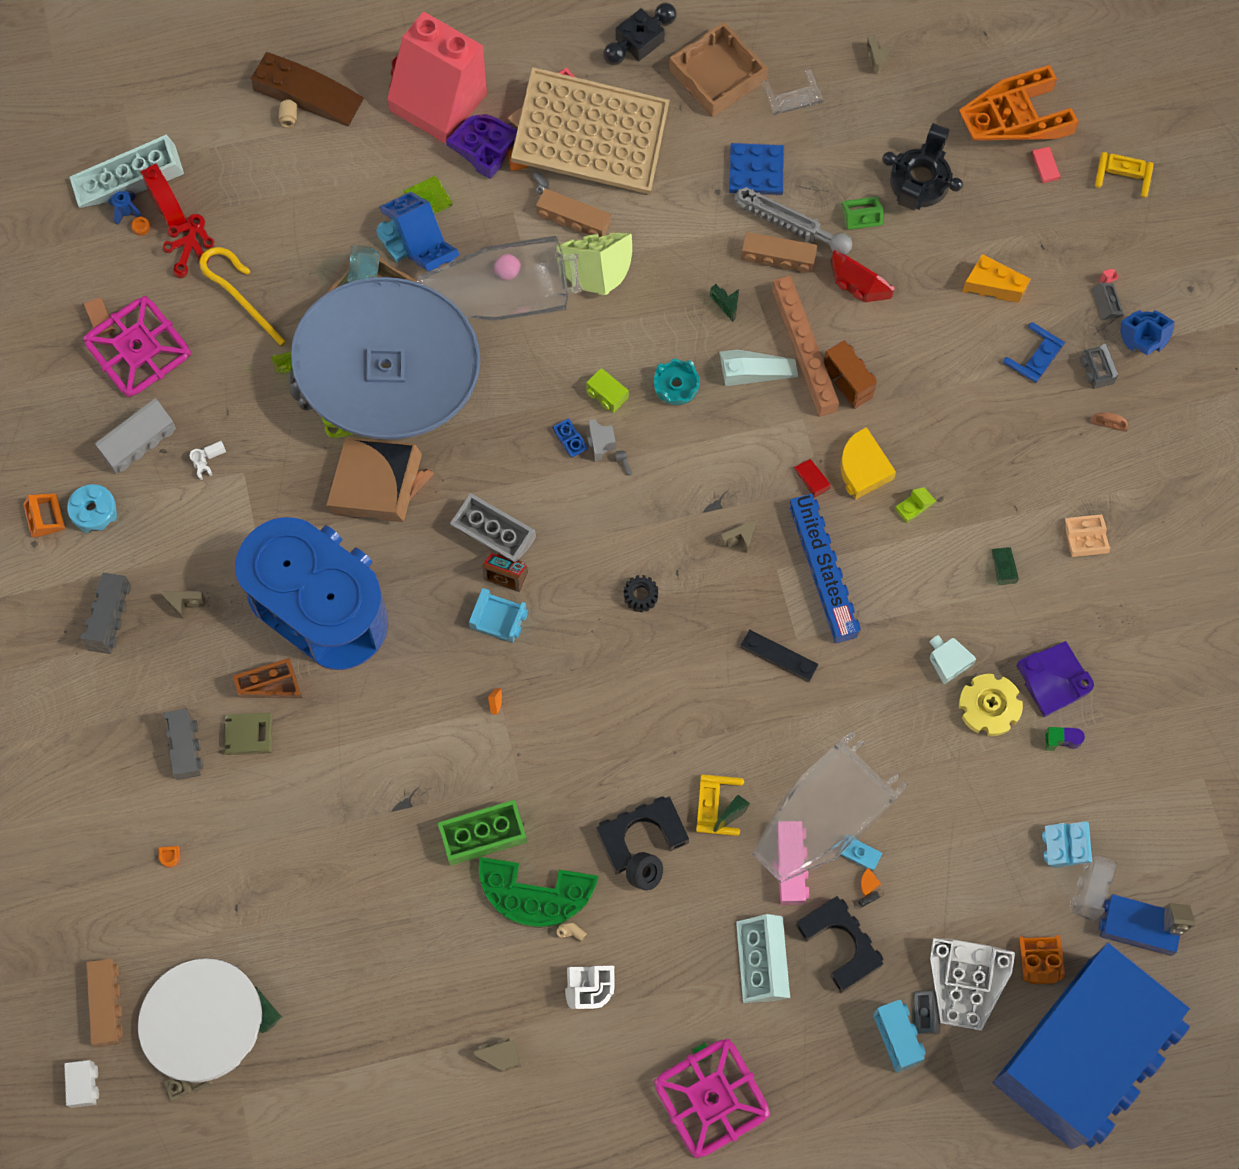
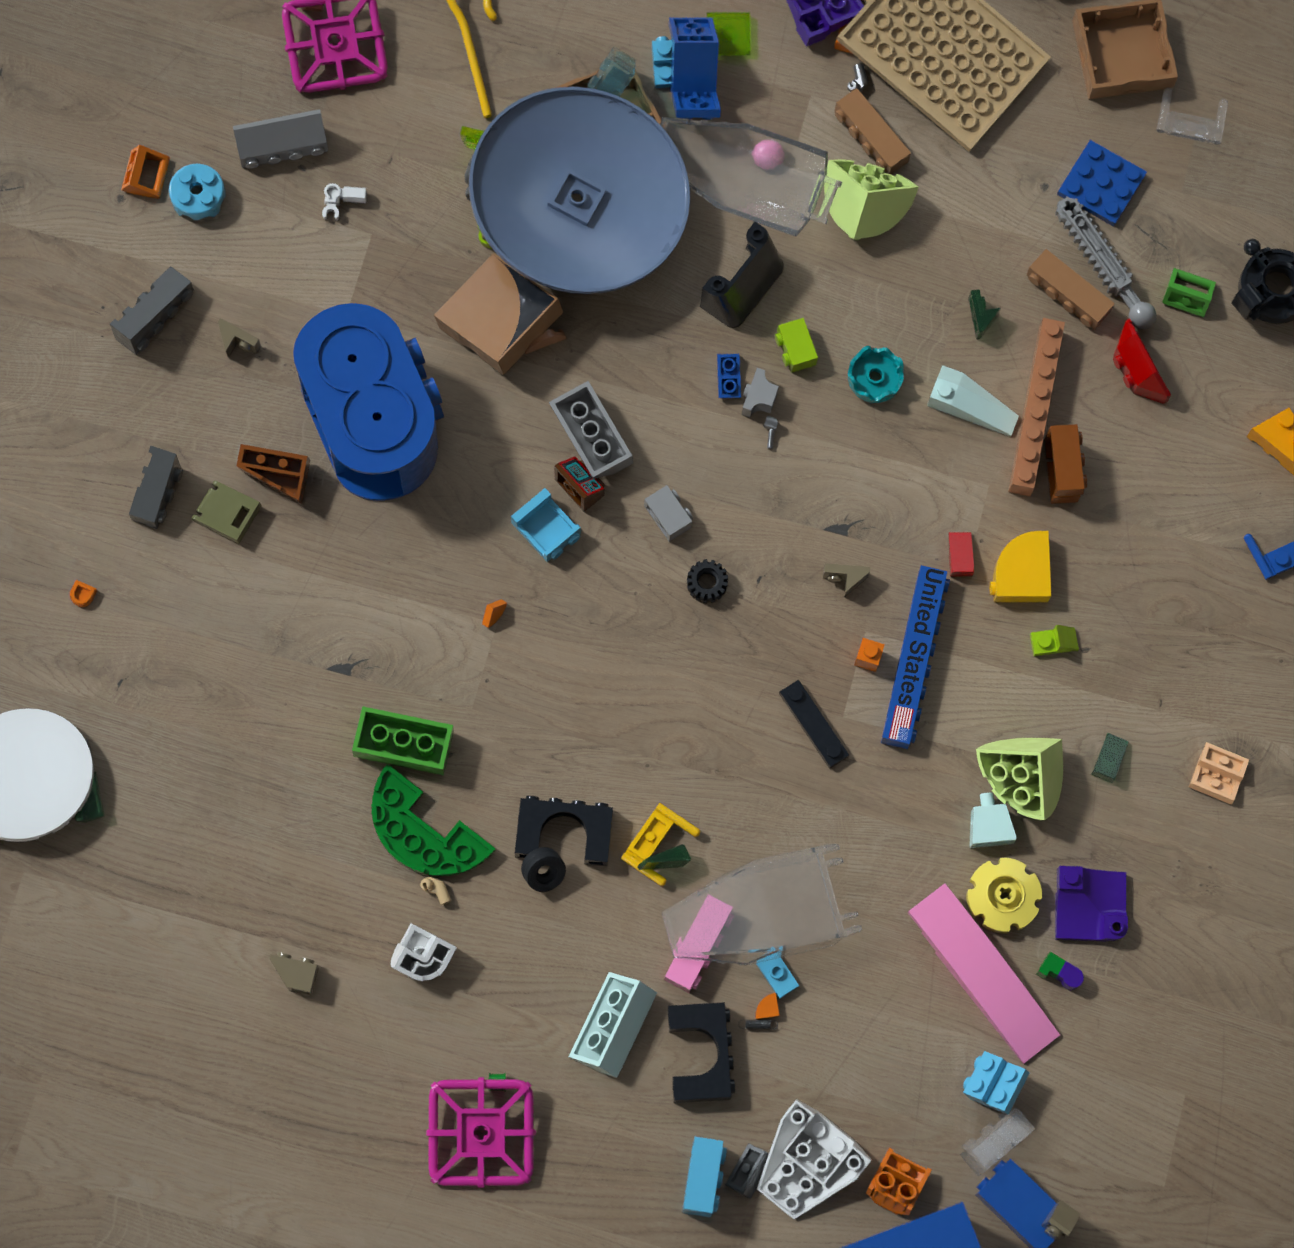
camera: 25 degrees right, 5 degrees up
(542, 381) = (736, 299): none -> black windscreen
(583, 559) = (668, 512): none -> light grey brick
(790, 583) = (869, 654): none -> orange brick
(953, 608) = (1024, 773): none -> yellowish green brick
(1009, 769) = (983, 973): none -> bright pink slope

